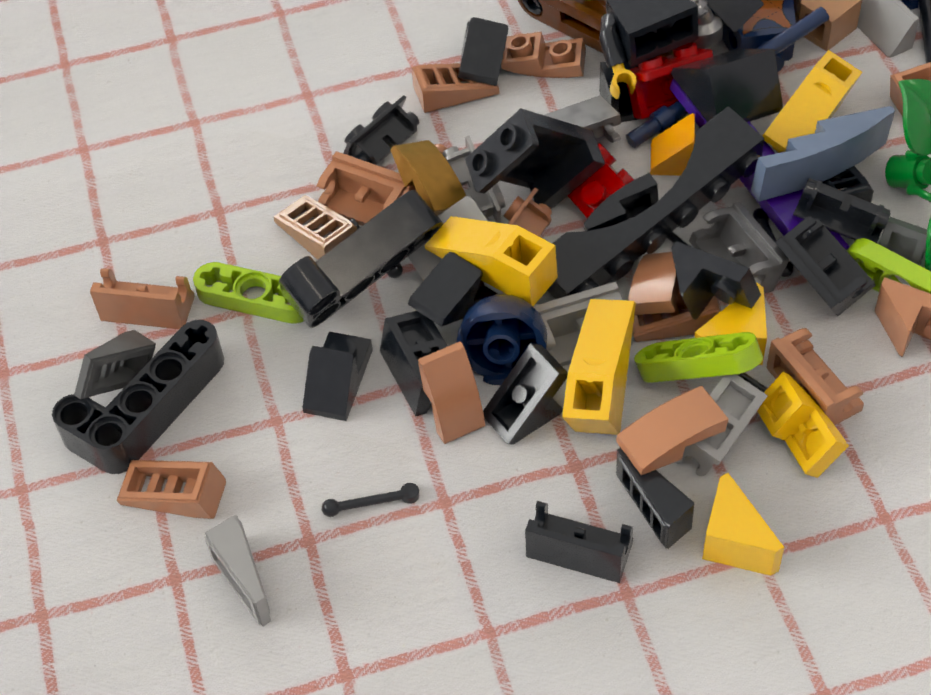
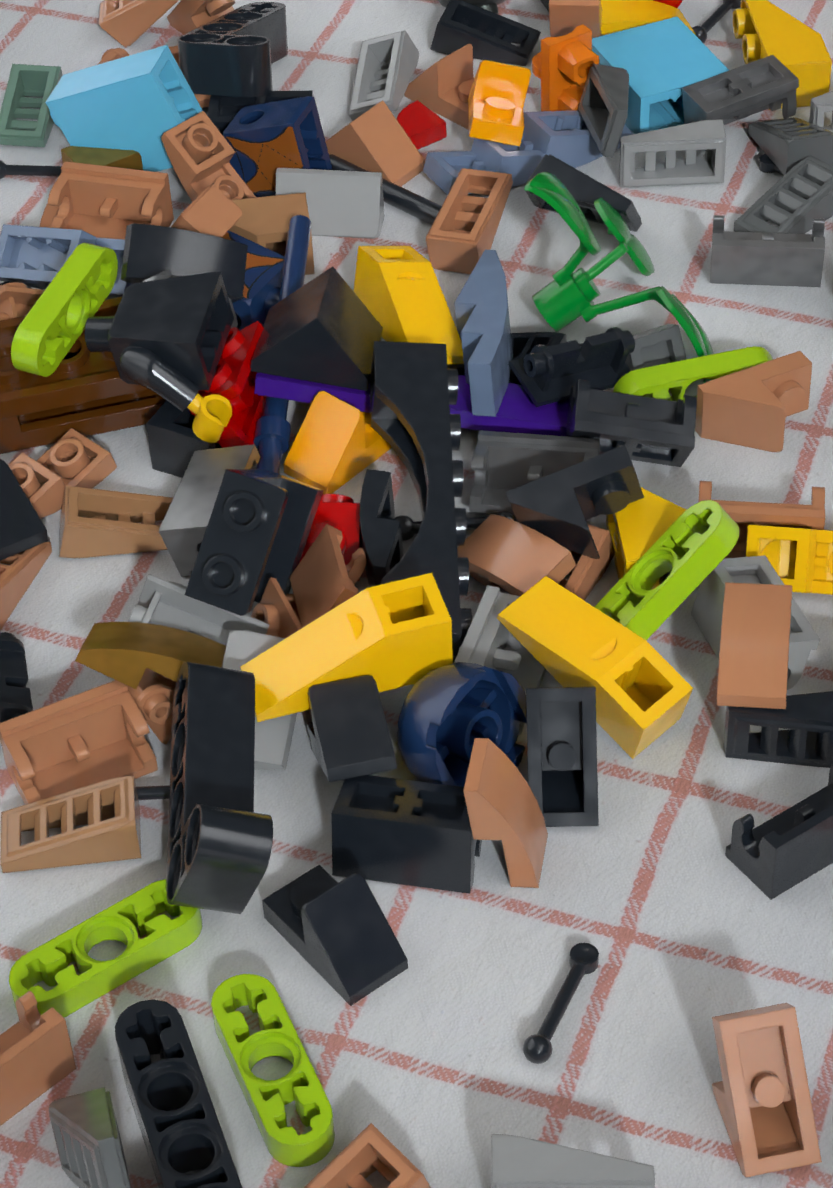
camera: 55 degrees left, 10 degrees down
(231, 423) = (268, 1097): none -> lime beam
(365, 624) = (765, 1090): none -> nougat slope
(529, 81) = (108, 522): none -> medium nougat slope
(556, 215) = (323, 579): none -> nougat hinge

